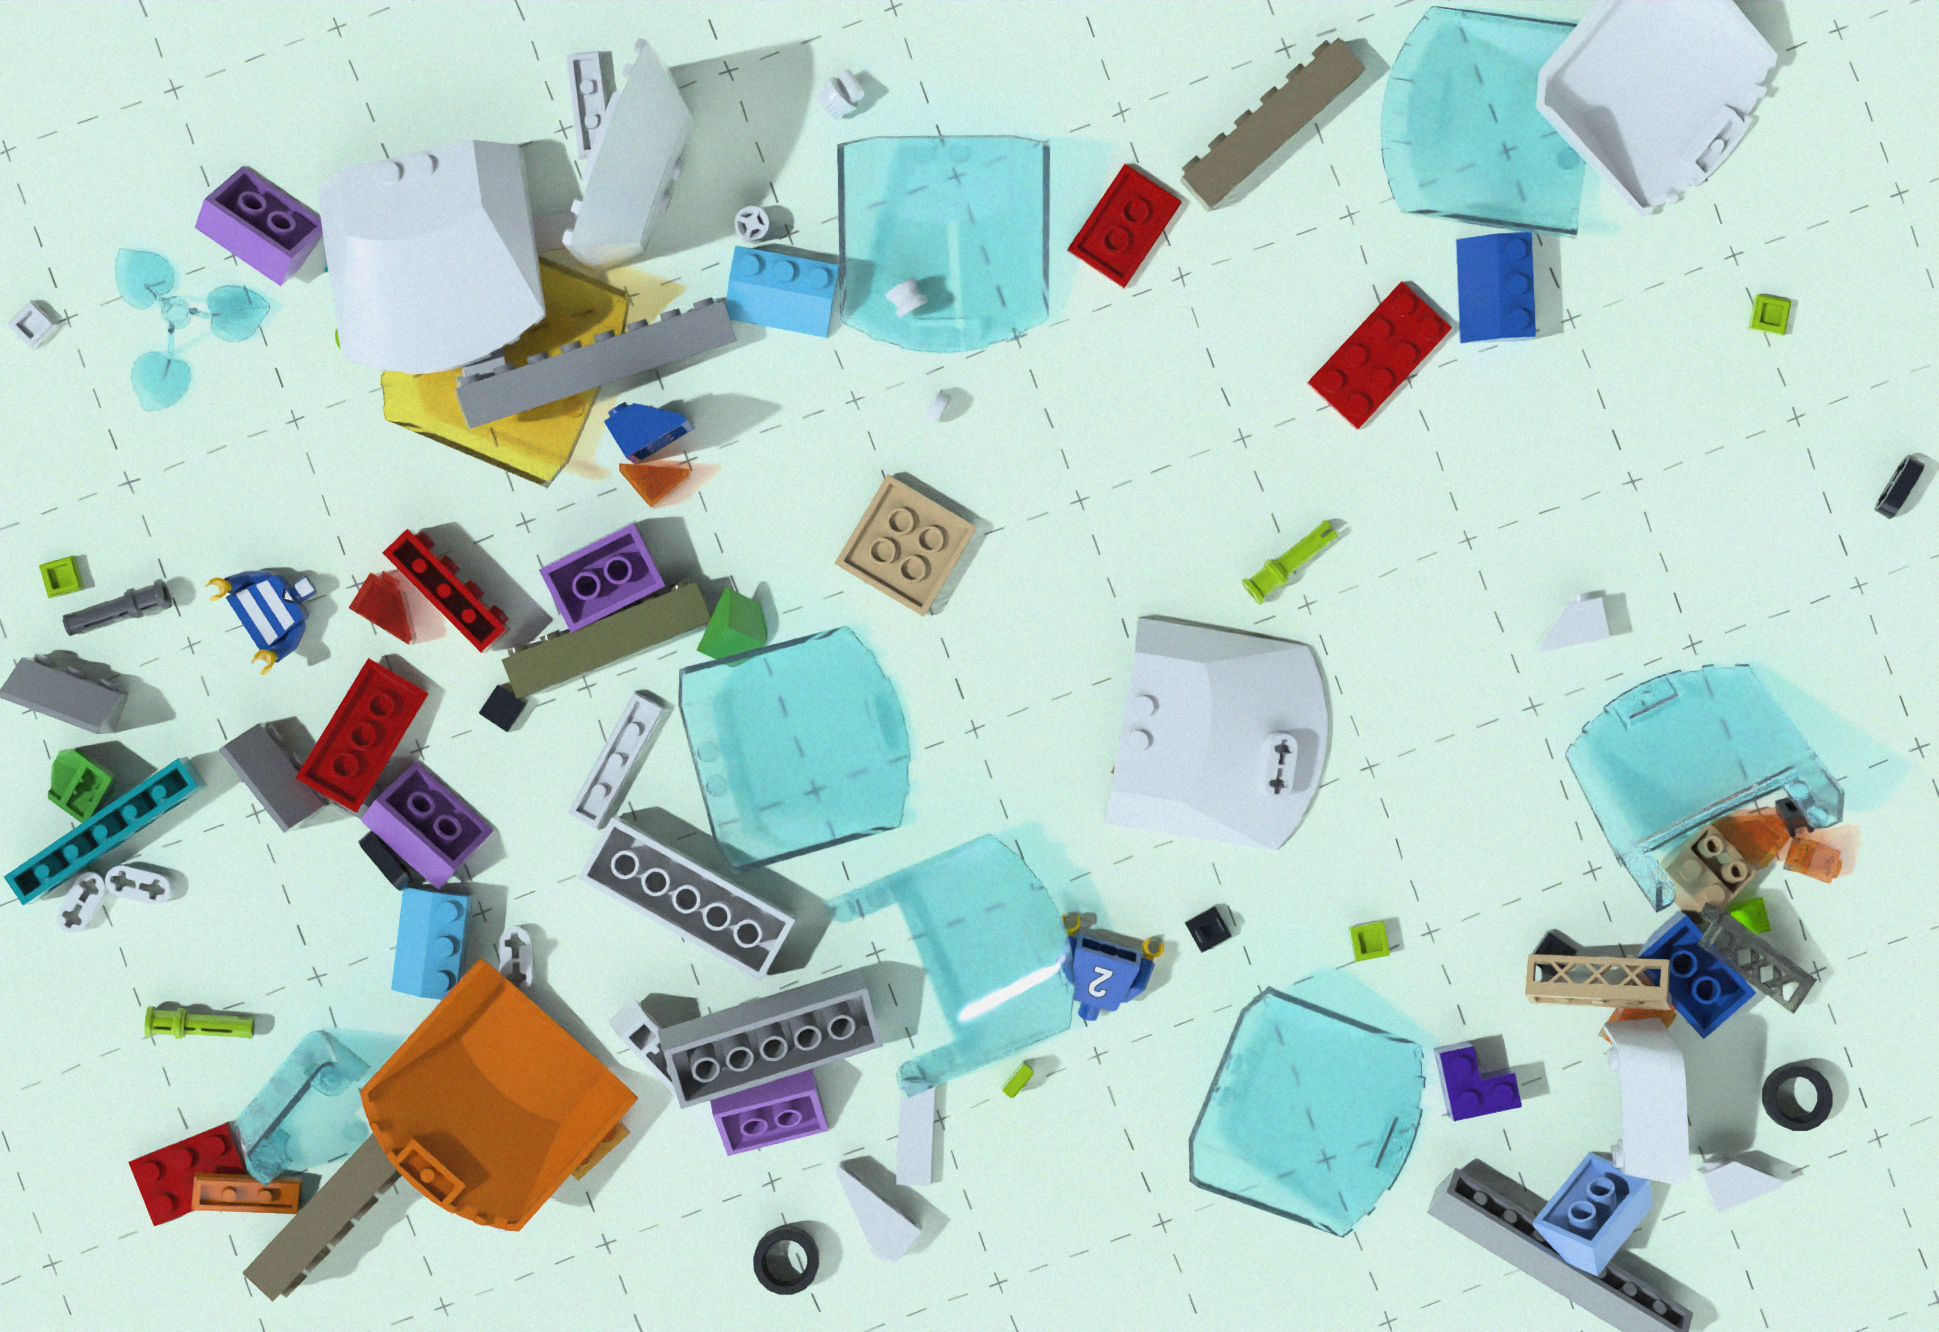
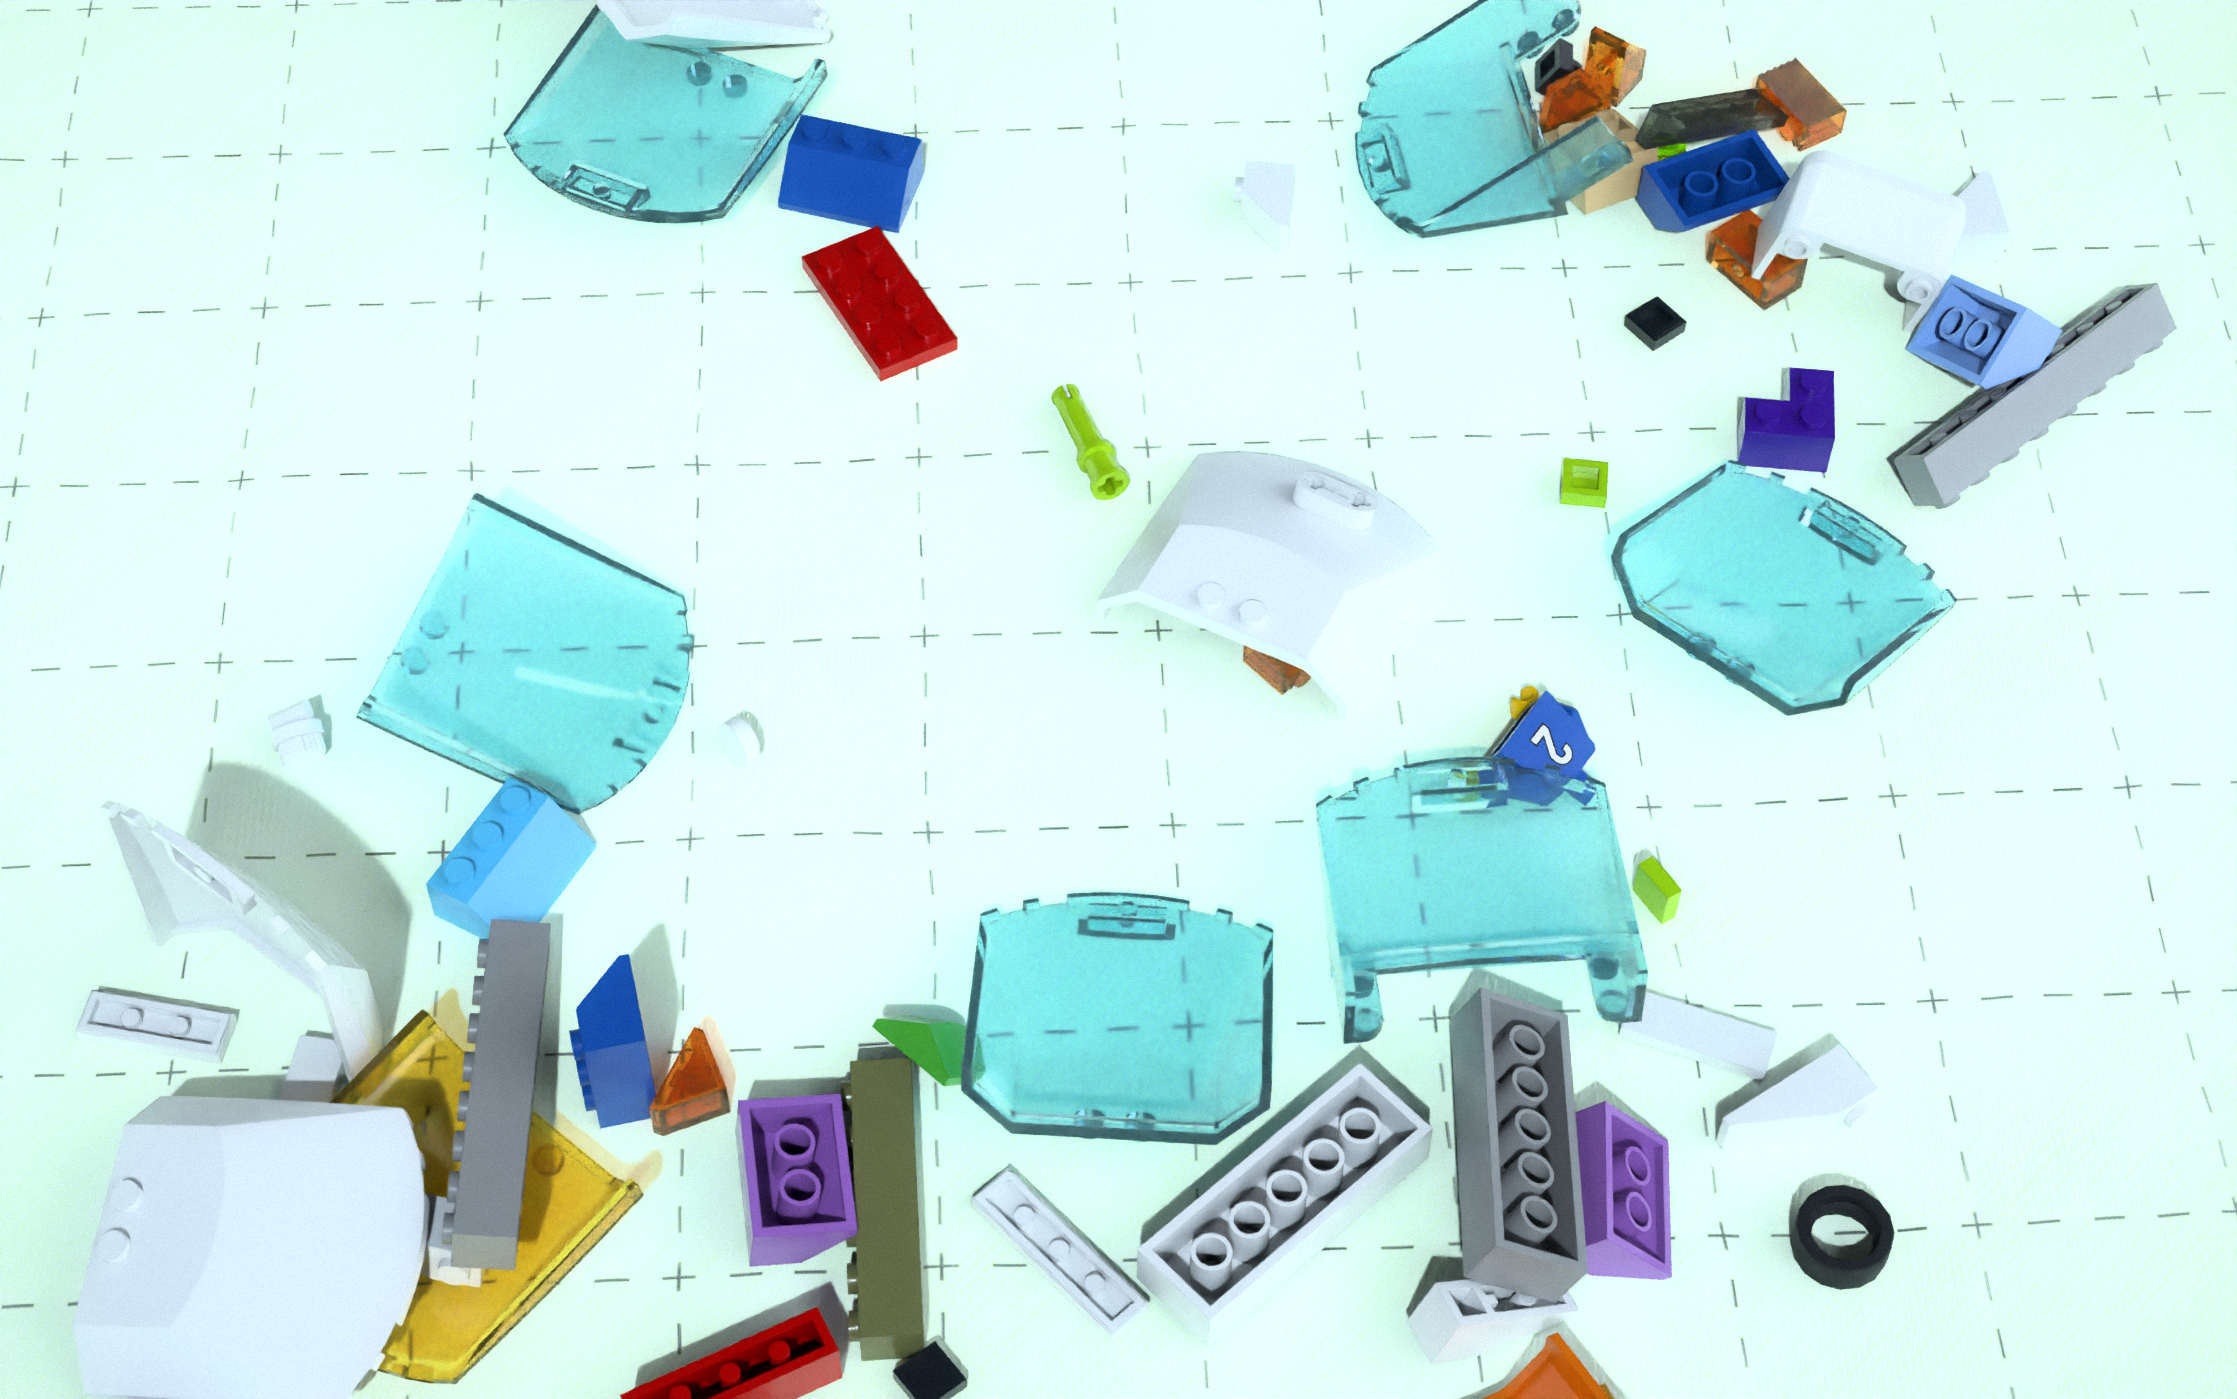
camera: 70 degrees left, 35 degrees down
(747, 221) = (408, 865): white wheel -> none
(905, 545) = (903, 825): tan plate -> none
(906, 297) = (586, 727): white wheel -> none
(1124, 226) = (609, 499): red tile -> none
(1207, 929) = (1518, 641): black tile -> none
(1272, 124) = (561, 325): dark tan brick -> none
(1602, 994) = (1716, 267): tan fence -> none
(1820, 1017) = (1811, 108): none -> clear orange brick
(1821, 1109) = (1892, 125): black tyre -> none

